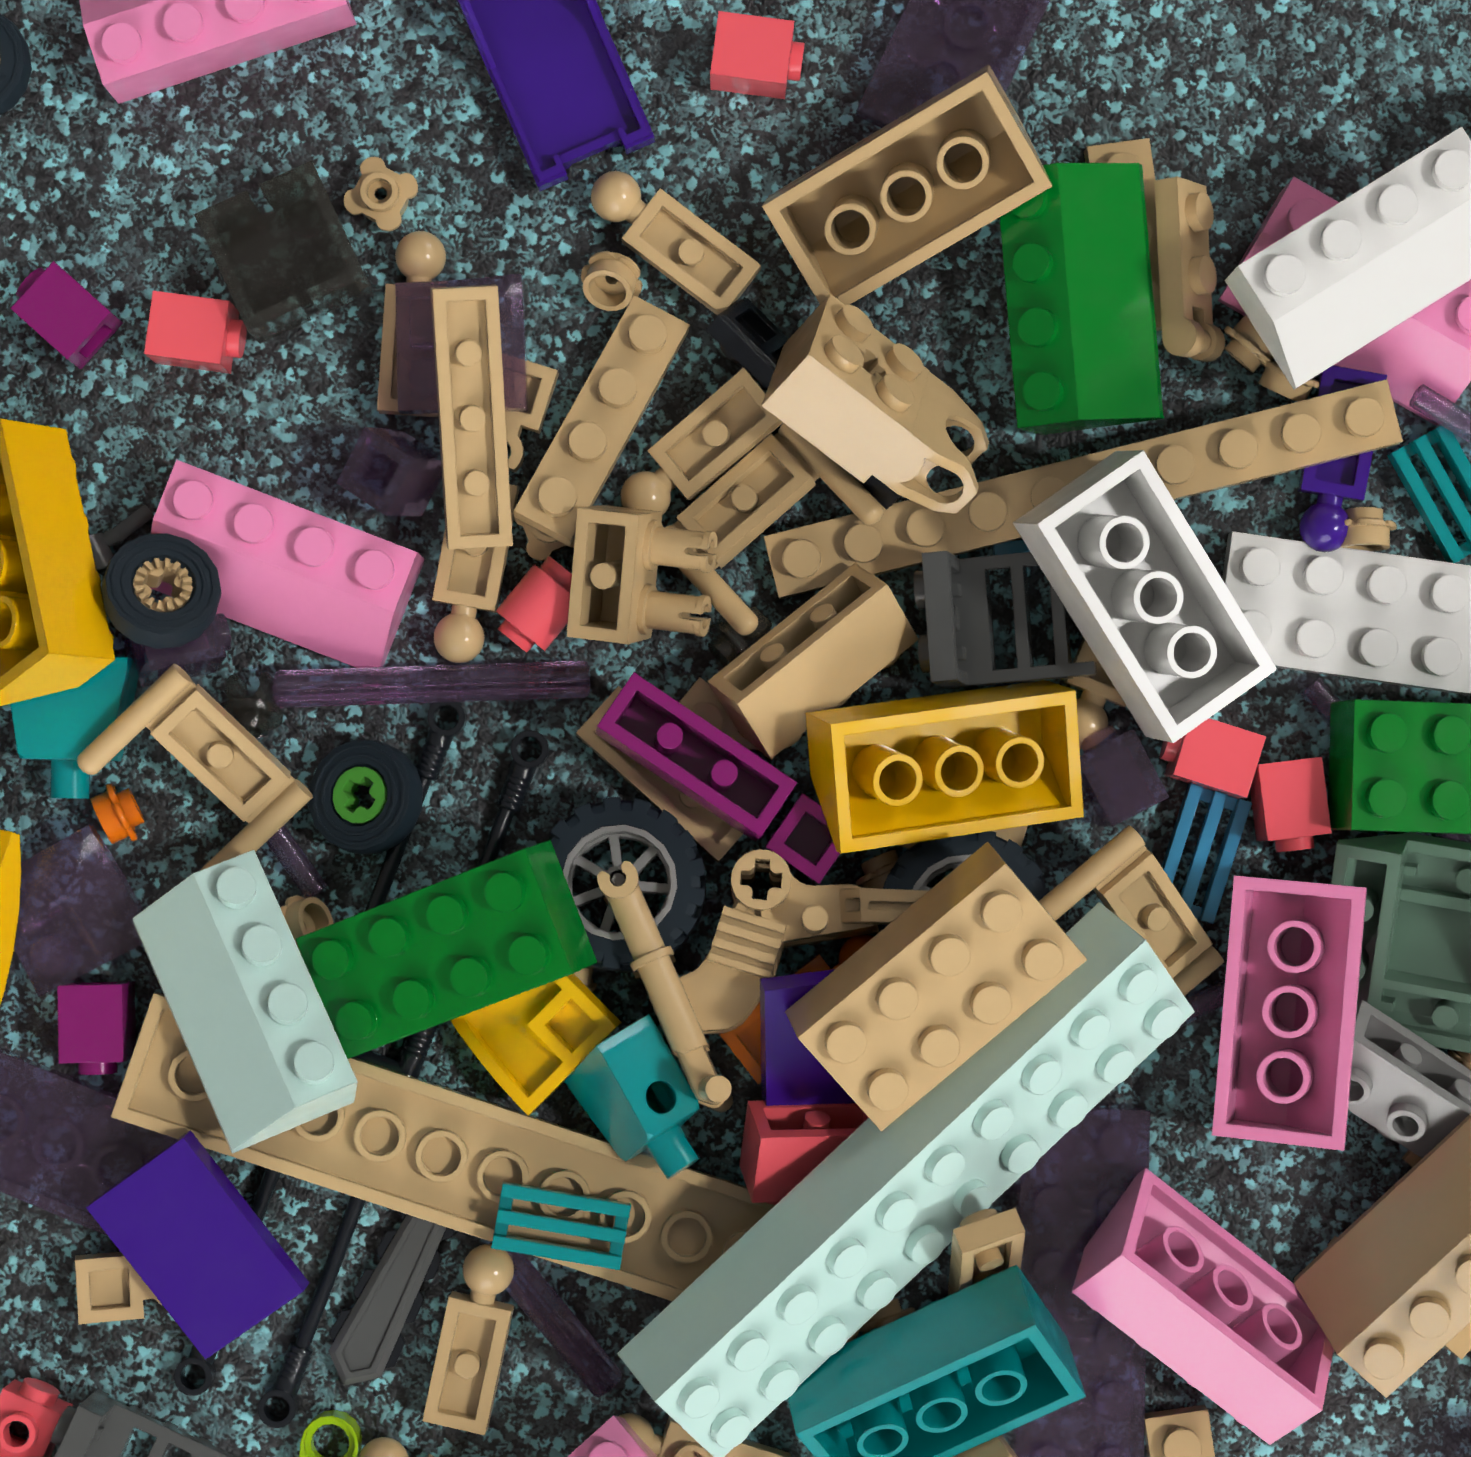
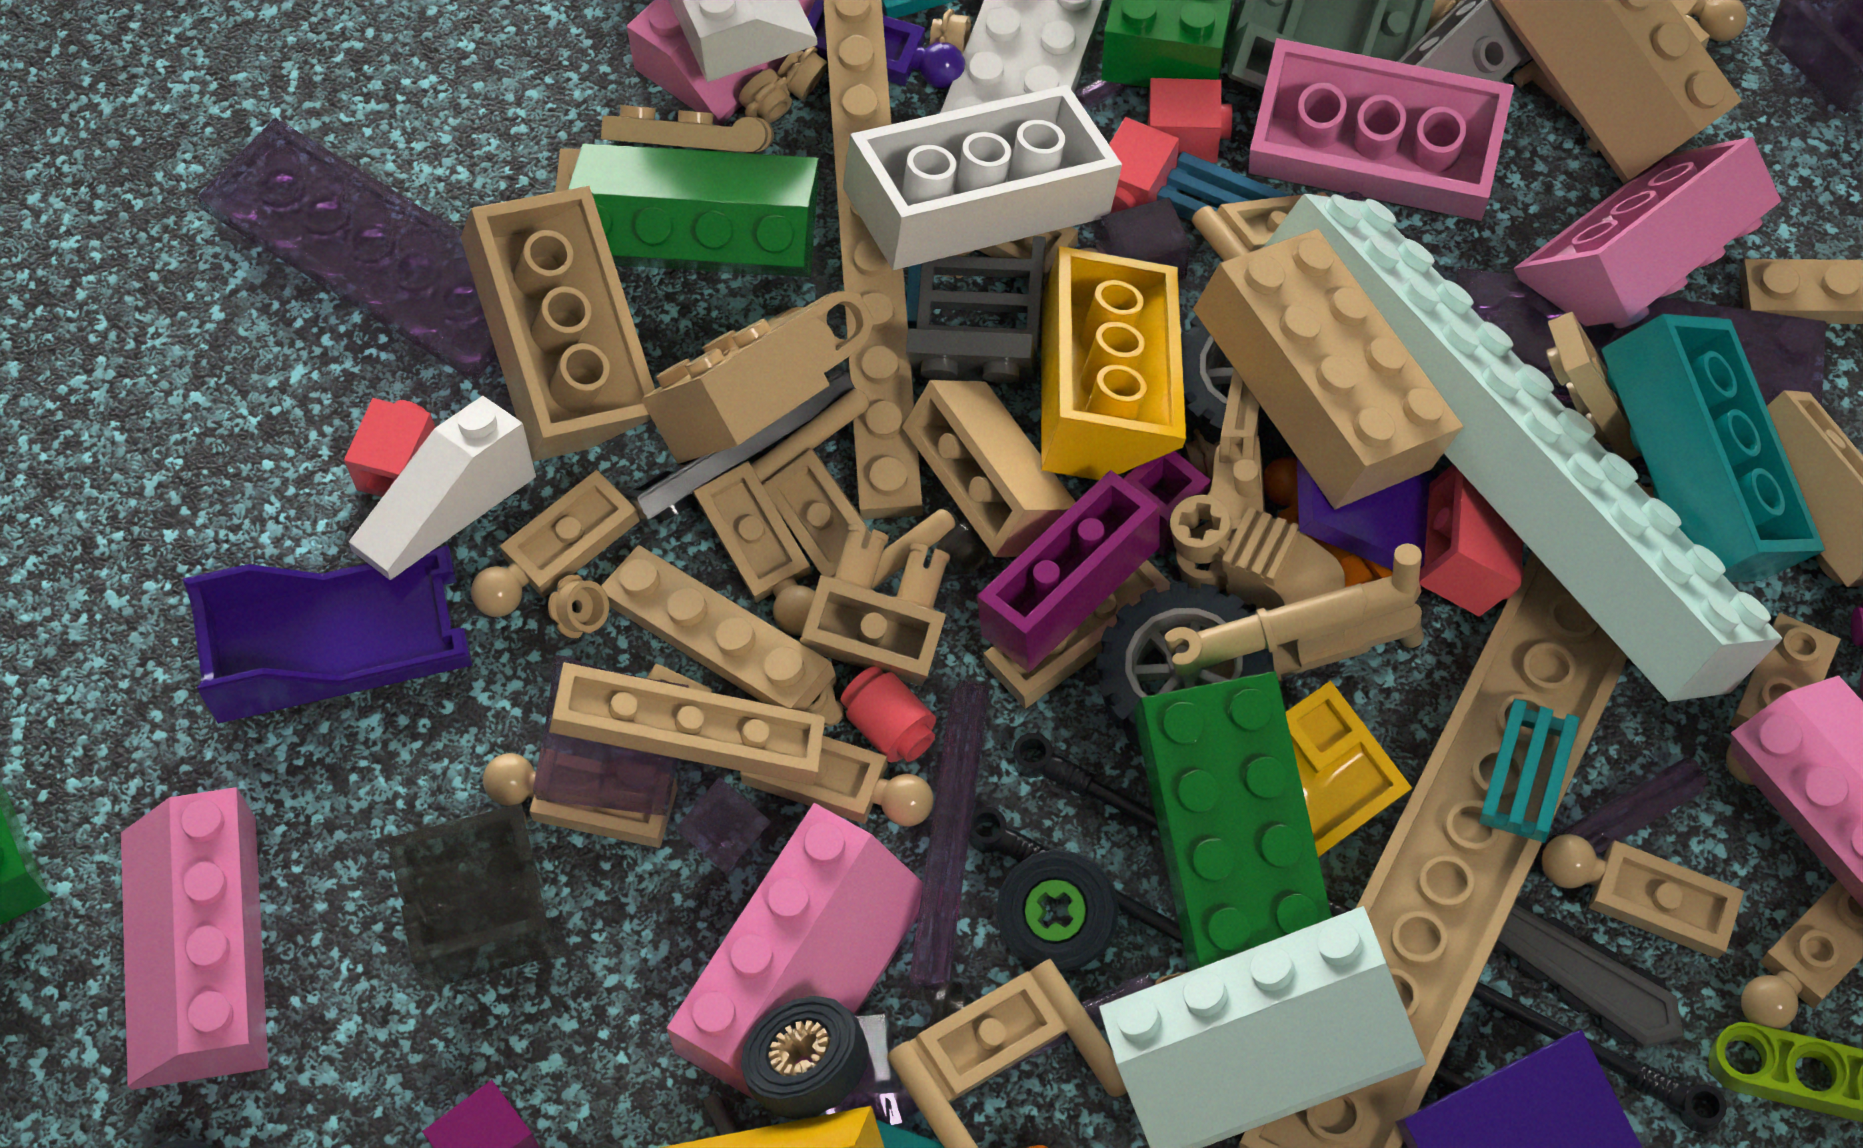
camera: 75 degrees left, 25 degrees down
(194, 332) = (533, 1011): coral brick -> none
(389, 210) = (433, 792): tan plate -> none
(638, 1096) = (1404, 674): teal torso -> none
(707, 118) = (446, 485): none -> white slope

